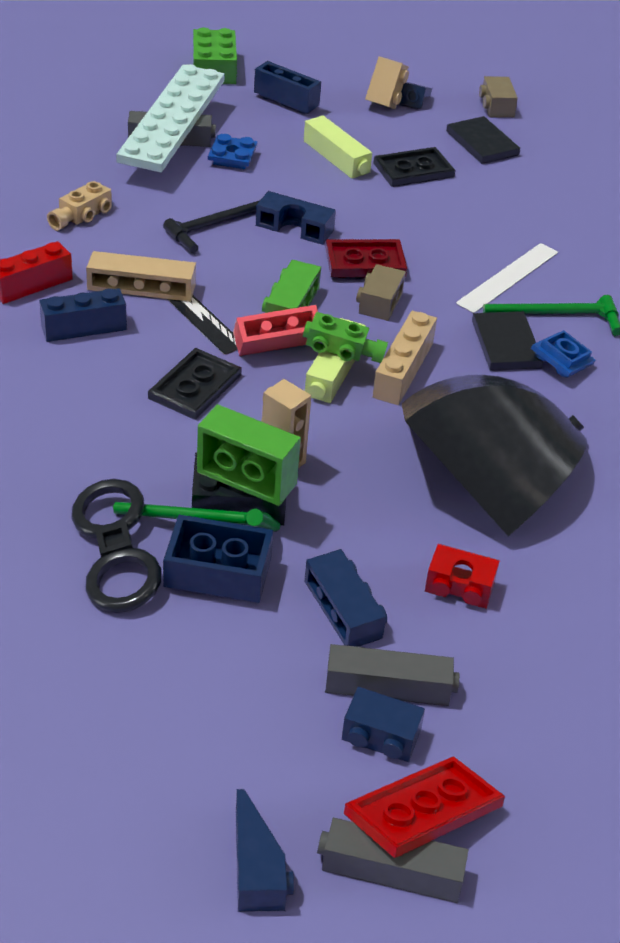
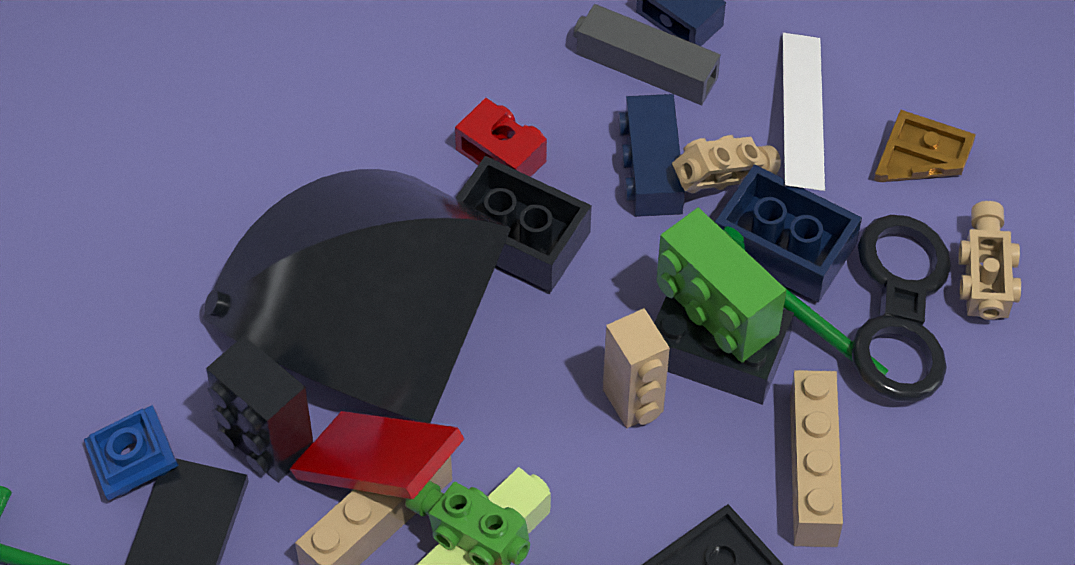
camera: 155 degrees left, 15 degrees up
(55, 581) = (989, 287): none -> tan brick
(129, 665) = (923, 149): none -> pearl gold wing
(148, 440) = (815, 459): none -> tan brick
(242, 658) = (803, 112): none -> white sticker
(290, 578) = (722, 162): none -> tan brick
(412, 350) = (377, 454): none -> red tile
(414, 515) = (543, 221): none -> black brick
(503, 346) = (259, 408): none -> black brick

